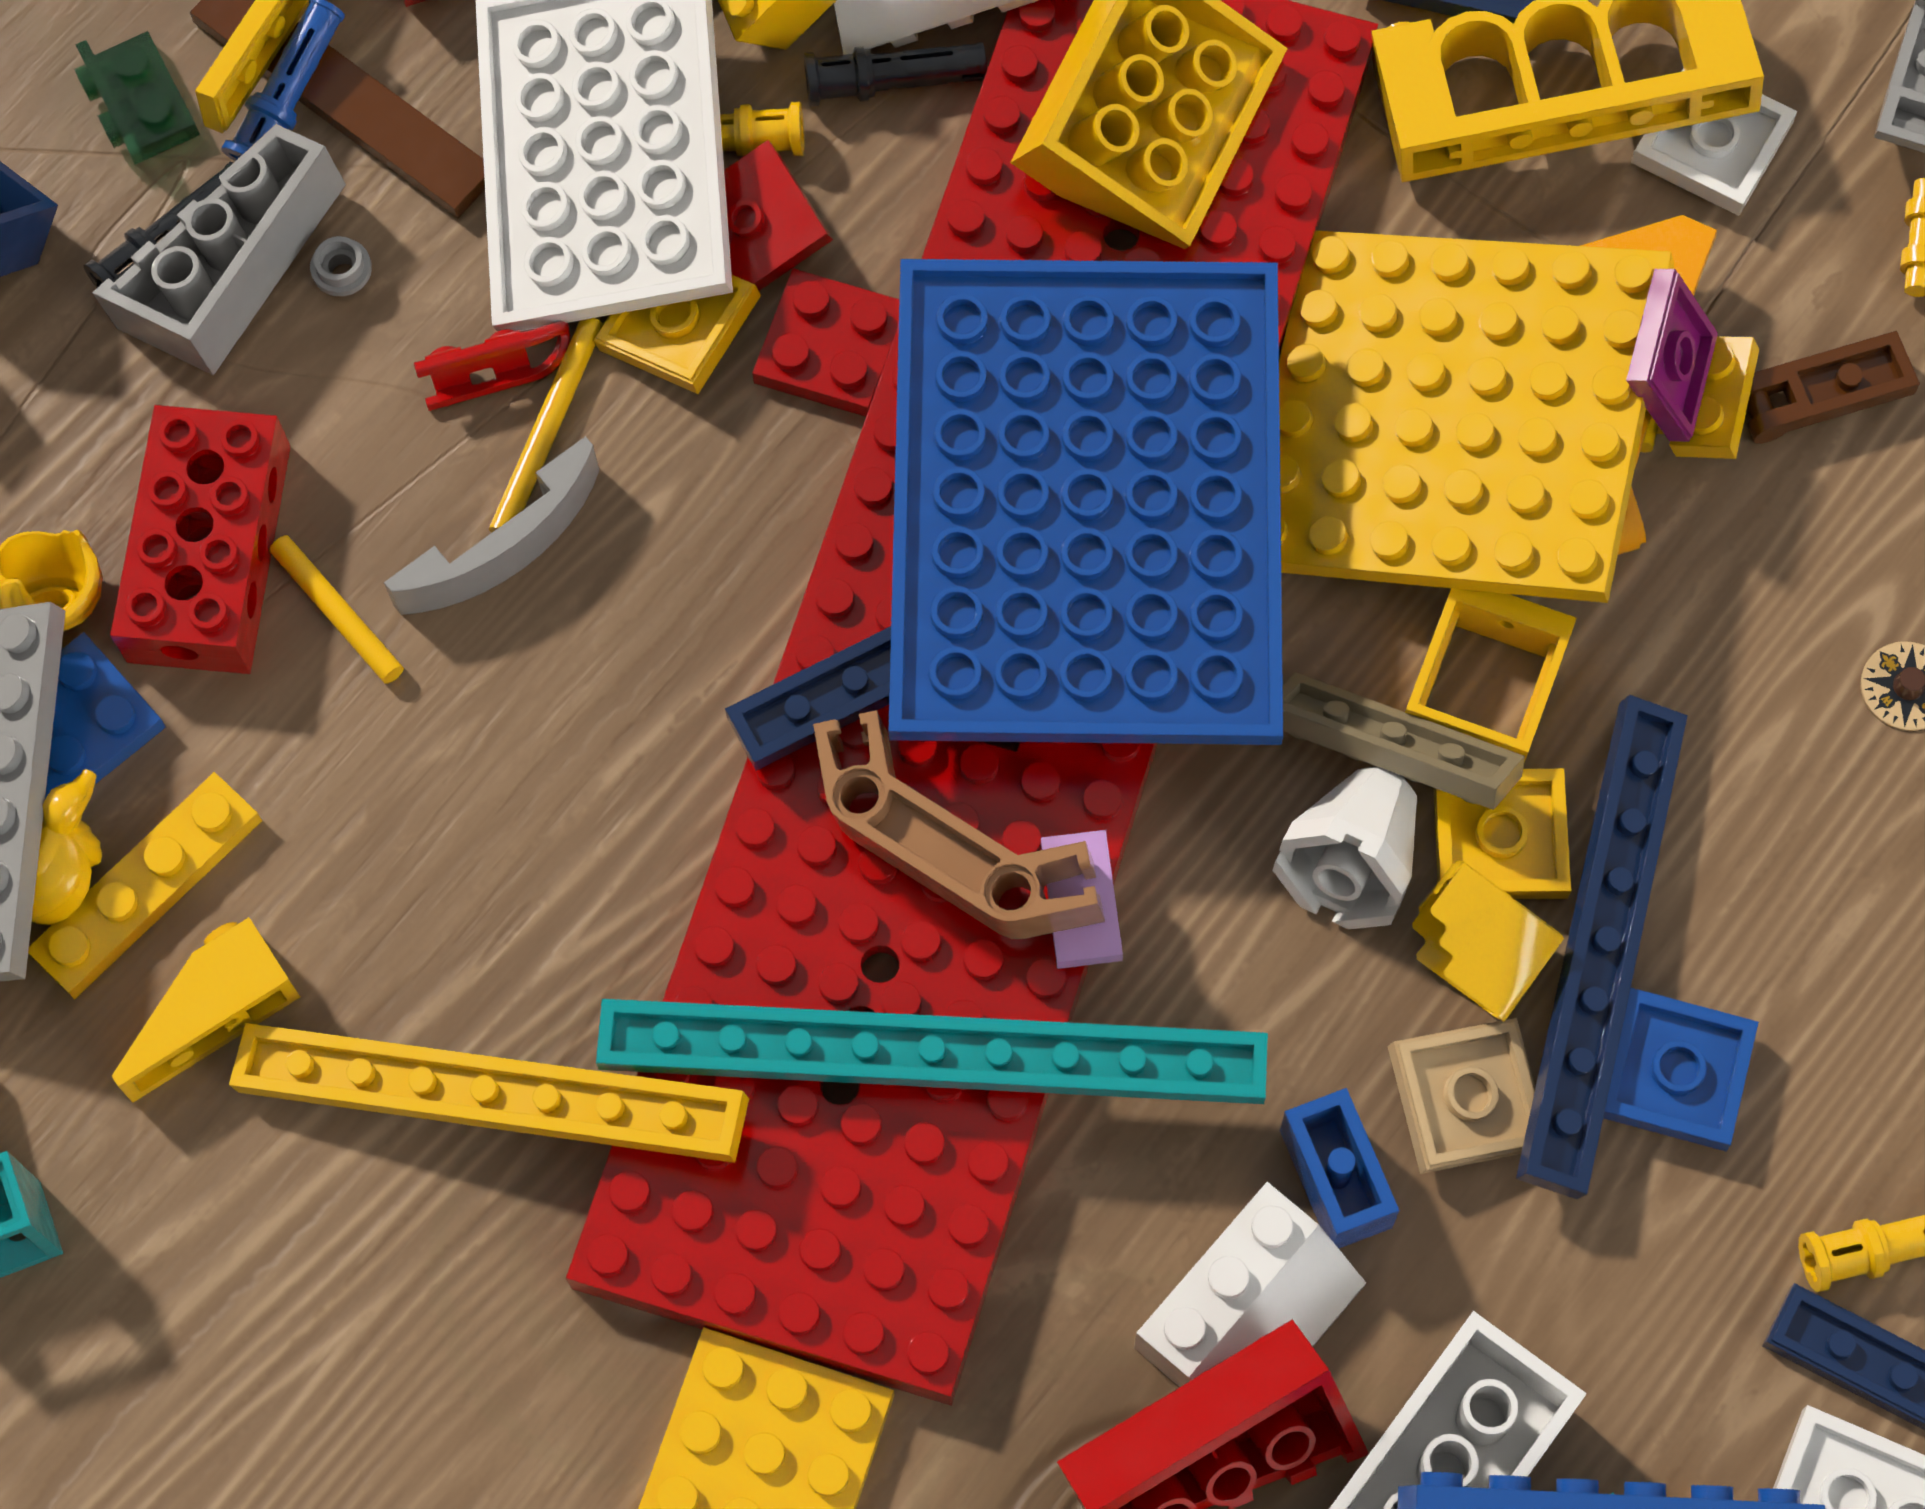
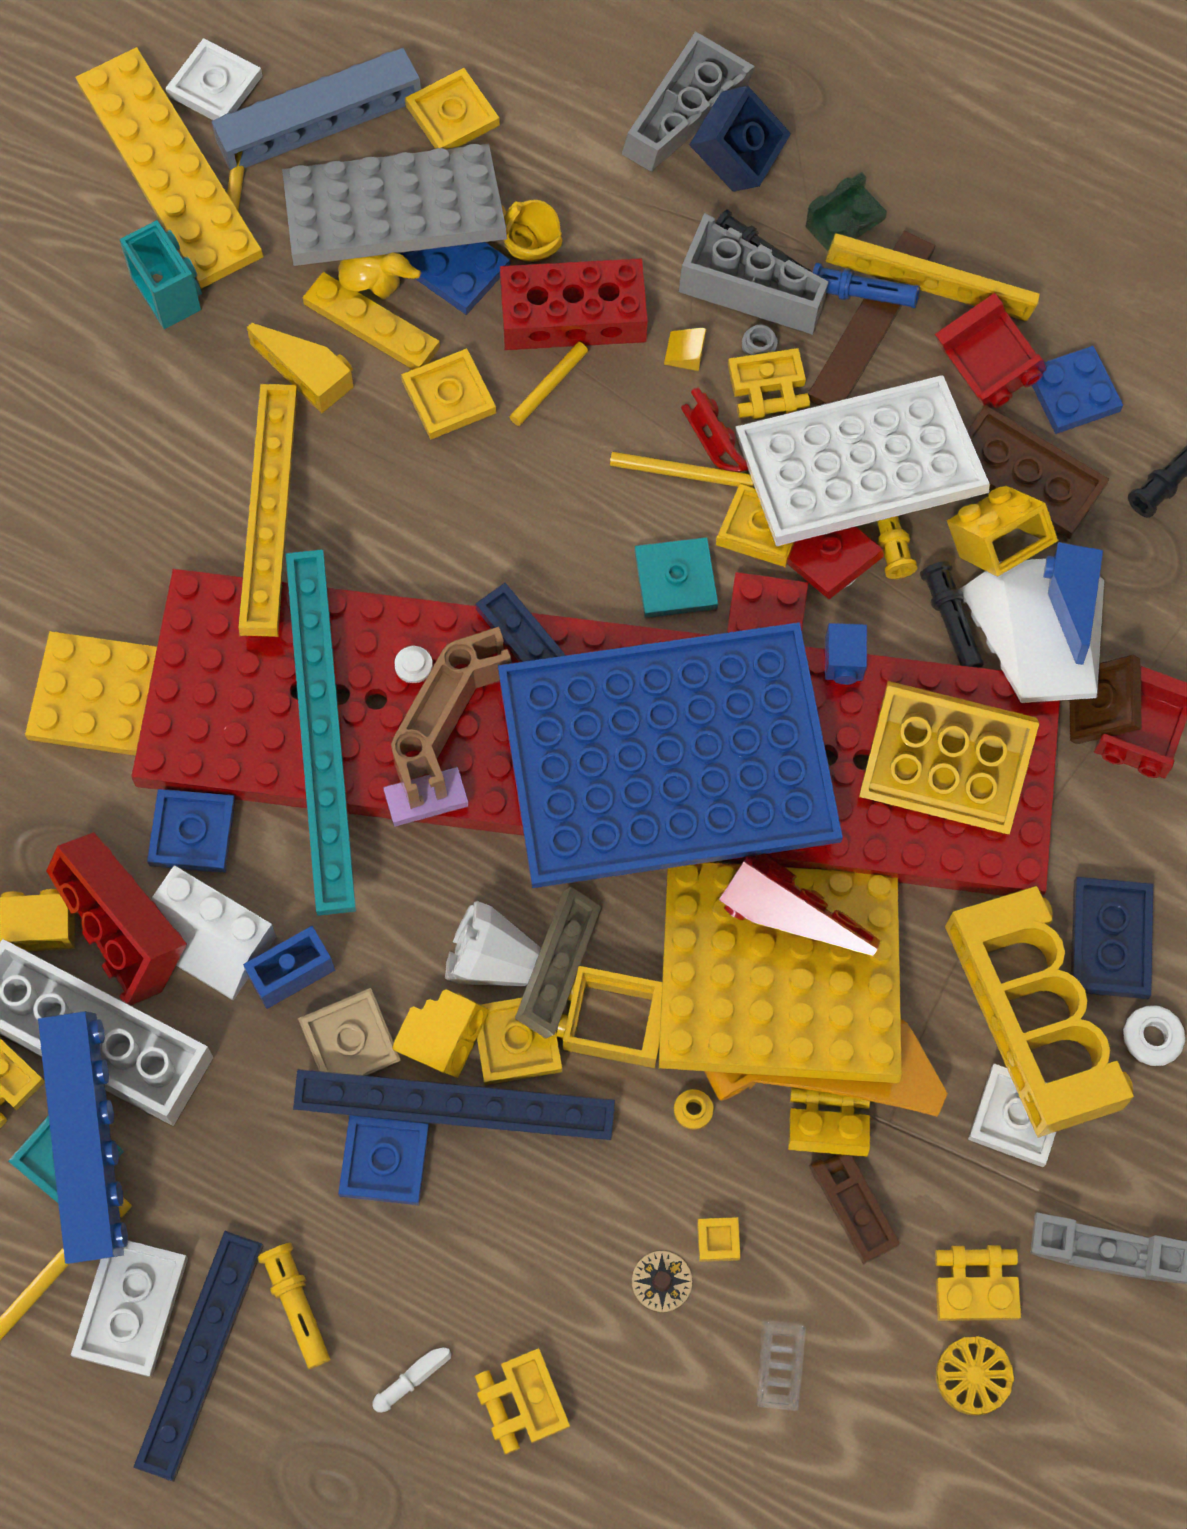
camera: 75 degrees right, 0 degrees up
(320, 771) = (448, 393): none -> yellow plate
(324, 379) = (685, 348): none -> yellow slope
(402, 264) = (767, 373): none -> yellow plate
(435, 584) = (640, 484): light grey slope -> none
(739, 467) = (676, 577): none -> teal plate
(840, 883) = (413, 664): none -> white plate
(951, 215) = (845, 653): none -> blue brick
(1058, 1311) = (191, 830): none -> blue plate
(1353, 395) = (768, 896): none -> wedge
(1642, 605) = (693, 1121): none -> yellow plate
(1672, 355) = (834, 1087): magenta tile -> none
(1860, 586) = (718, 1239): none -> yellow plate

